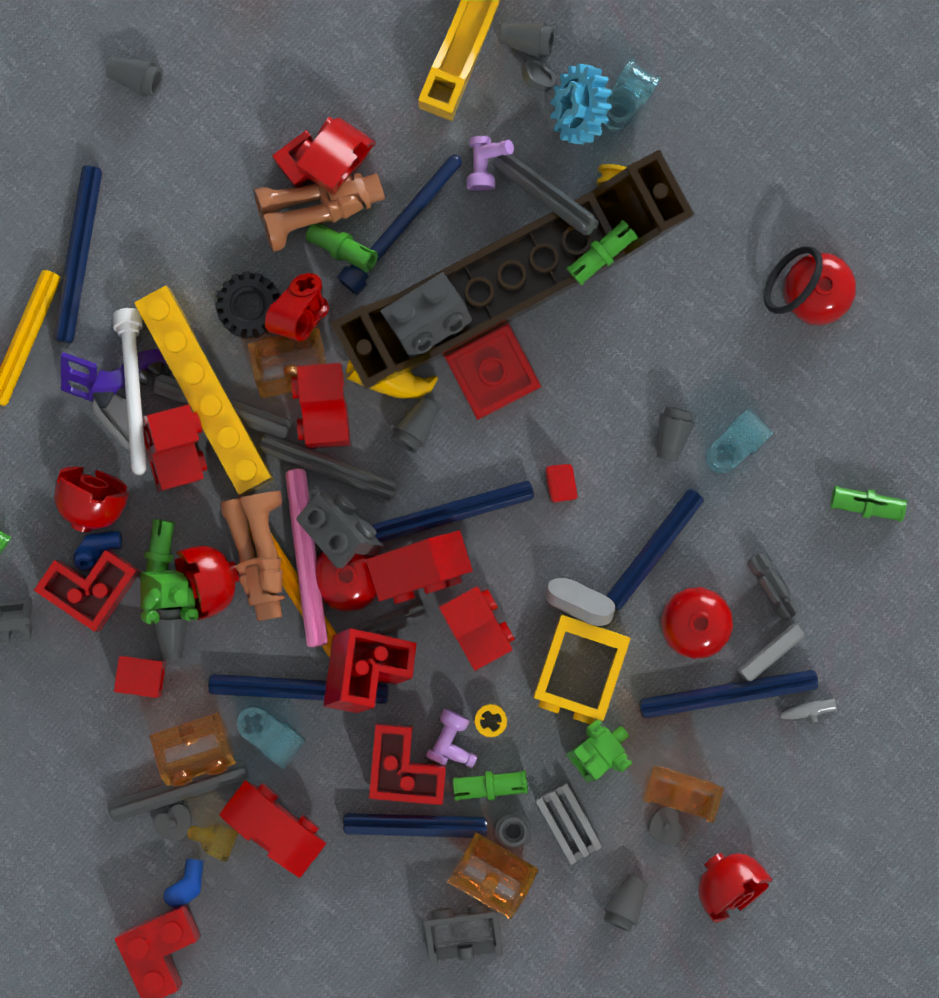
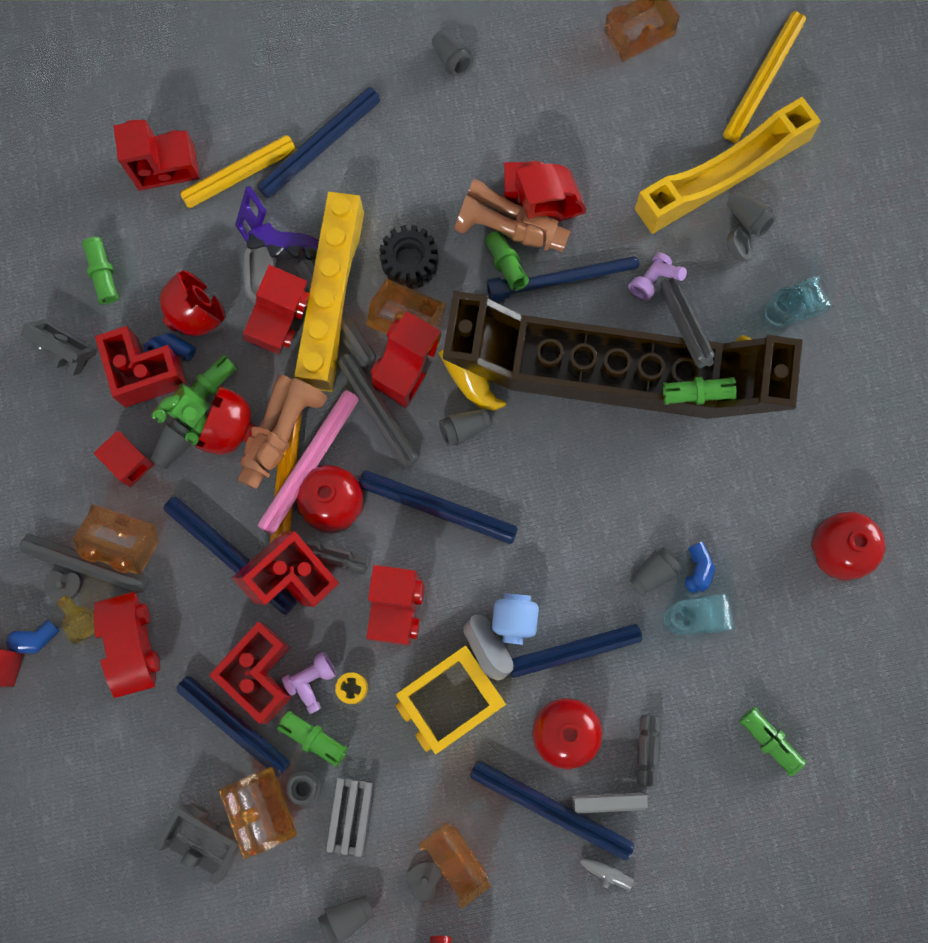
camera: 45 degrees right, 10 degrees down
(127, 324) = (312, 212): white piece -> none
(275, 740) = (180, 578): clear light blue piece -> none
(298, 308) = (439, 278): red piece -> none
(338, 529) = (347, 455): dark grey bracket -> none
(425, 564) = (387, 526): red brick -> none
(427, 315) = (531, 343): dark grey bracket -> none
(492, 371) = (550, 429): red tile -> none
(561, 483) = (540, 547): red slope -> none
(581, 104) = (759, 279): medium azure gear -> none
(584, 560) = (515, 618): none -> light blue head
(600, 752) = (416, 778): bright green piece -> none
(713, 401) = (703, 571): none -> blue arm
(807, 291) = (840, 534): black tyre -> none

